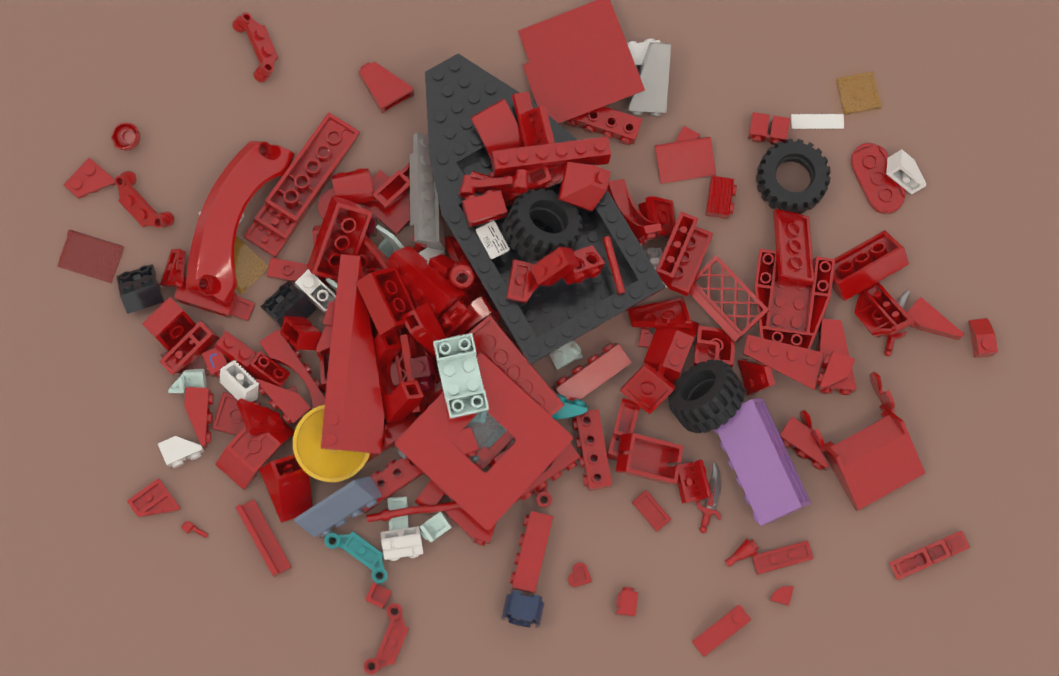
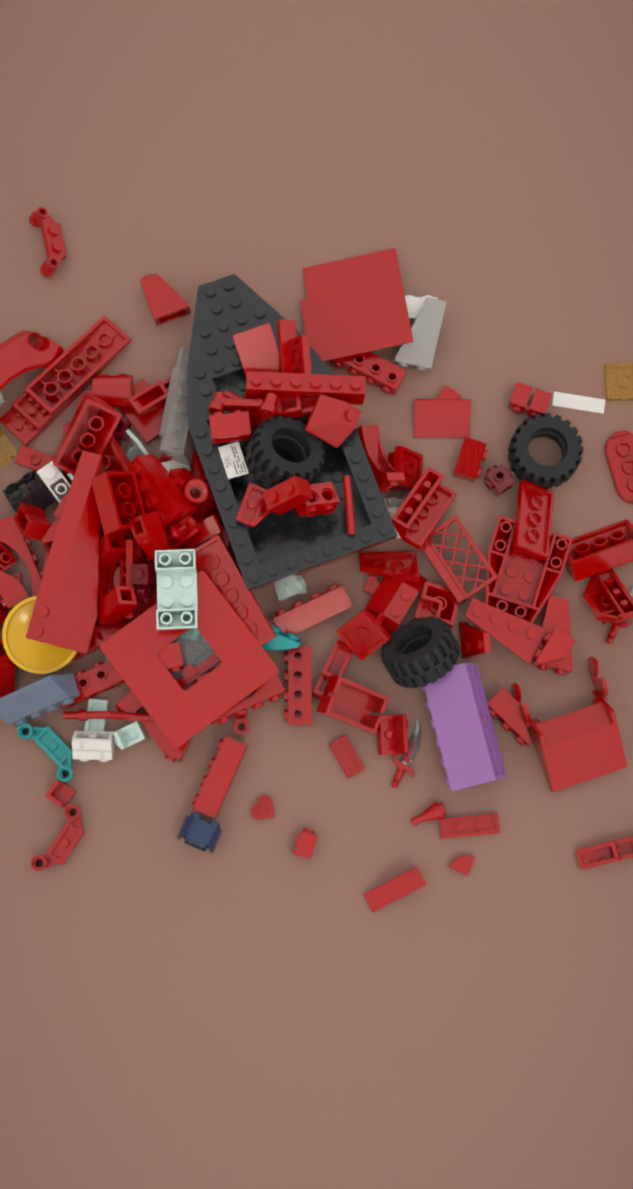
camera: 15 degrees right, 0 degrees up
(746, 215) = (498, 479): none -> dark red brick

